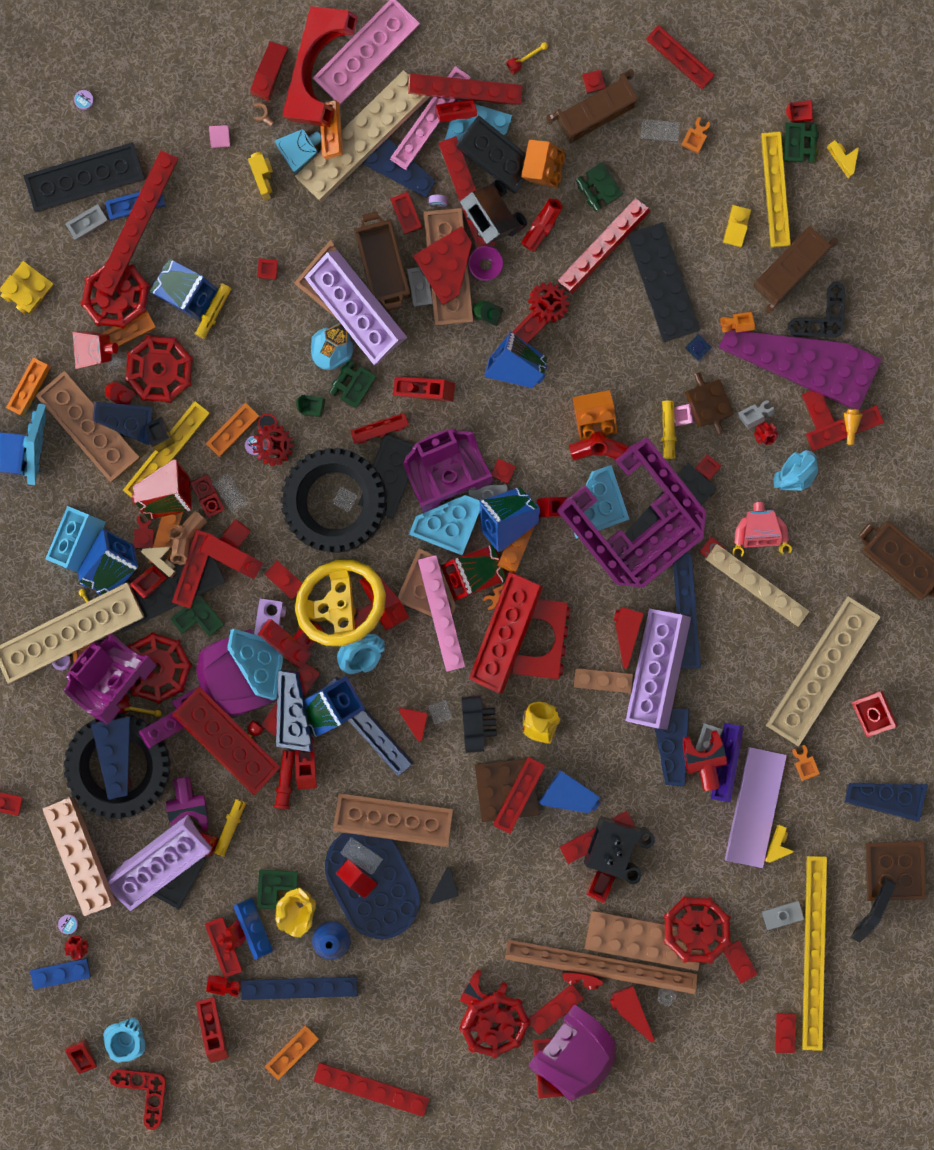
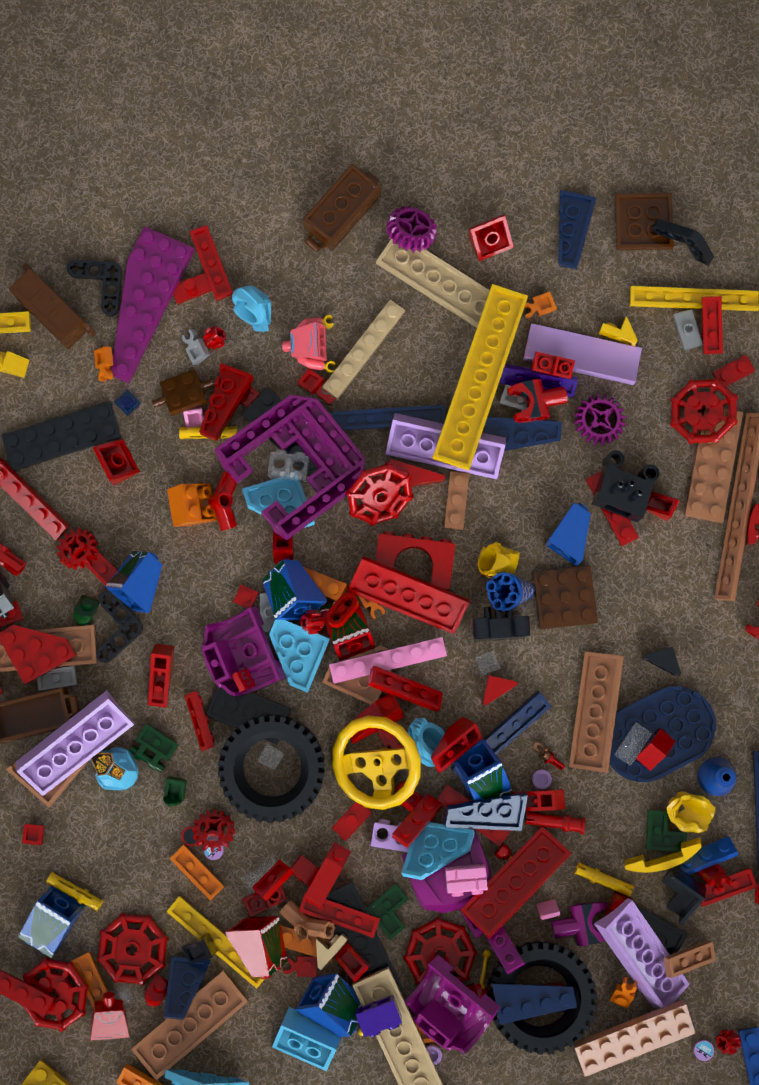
camera: 85 degrees left, 5 degrees down
(97, 608) = (379, 1016): none -> dark purple brick
(121, 846) = (623, 994): none -> orange plate
(154, 910) = (689, 959): none -> nougat plate
(200, 772) = (548, 909): none -> bright pink slope
(218, 909) = (688, 893): none -> black panel
(226, 503) = (272, 880): none -> red plate
(228, 691) = (466, 879): none -> bright pink brick
(244, 863) = (639, 864): none -> yellow slope
(326, 766) = (541, 779): none -> lavender tile
(348, 773) = (548, 756): none -> piece
(360, 680) = (455, 742): none -> red slope
(413, 630) = (405, 688): none -> red plate
(419, 471) = (243, 680): none -> red tile
(474, 351) = (123, 623): none -> black beam
(478, 537) = (312, 621): none -> red gear
(489, 565) = (342, 611): none -> red plate
(490, 254) = (28, 604): magenta piece -> none
(510, 732) = (508, 591): none -> blue cone
(519, 795) = (571, 584): red plate -> none
(613, 599) = (376, 486): none -> red plate
(629, 510) = (287, 471): none -> clear brick
(638, 338) = (116, 461): none -> red slope
(680, 831) = (595, 414): none -> magenta gear
(707, 448) = (228, 393): none -> red wing
(722, 531) = (310, 381): none -> red plate
(727, 703) = (480, 377): none -> yellow plate
(741, 776) = (553, 365): none -> red slope
(786, 939) = (712, 325): none -> red plate
(852, 420) = (203, 253): light orange cone -> none
(873, 635) = (411, 229): none -> magenta gear

